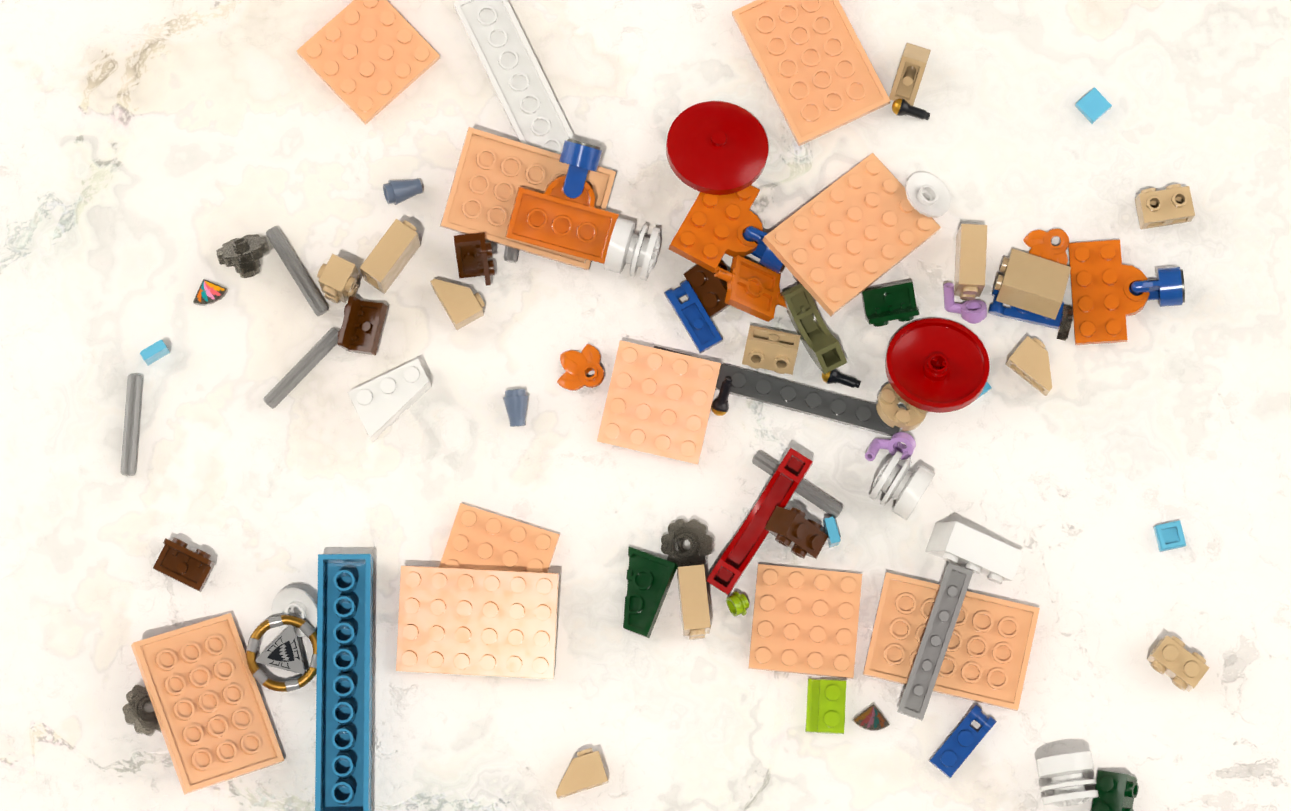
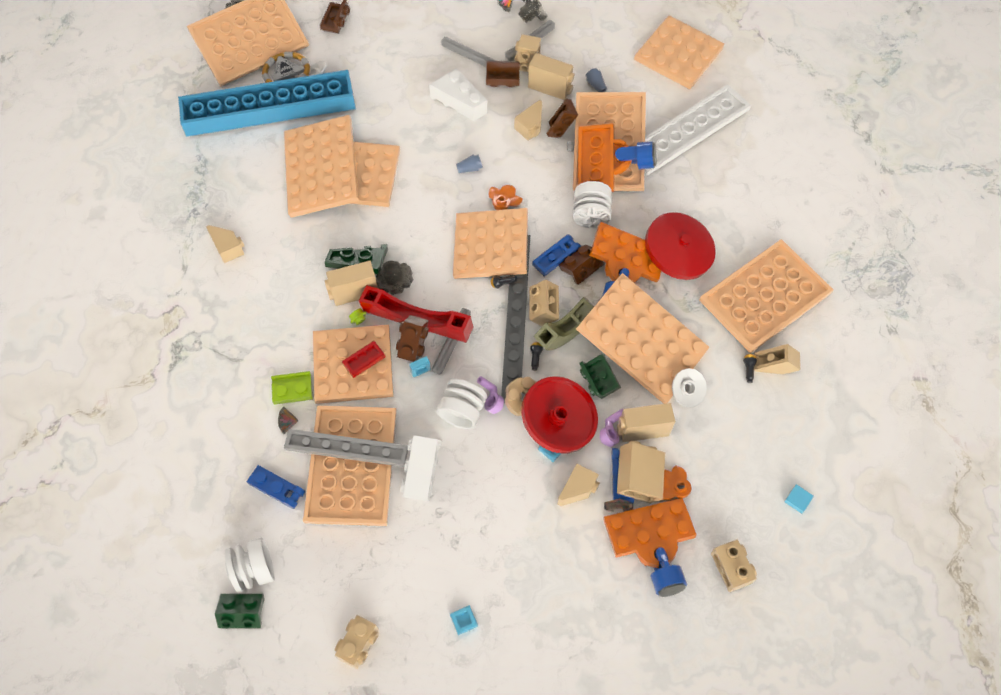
camera: 80 degrees right, 15 degrees down
(752, 288) = (585, 280): orange plate -> none
(812, 601) = (363, 359): none -> red plate

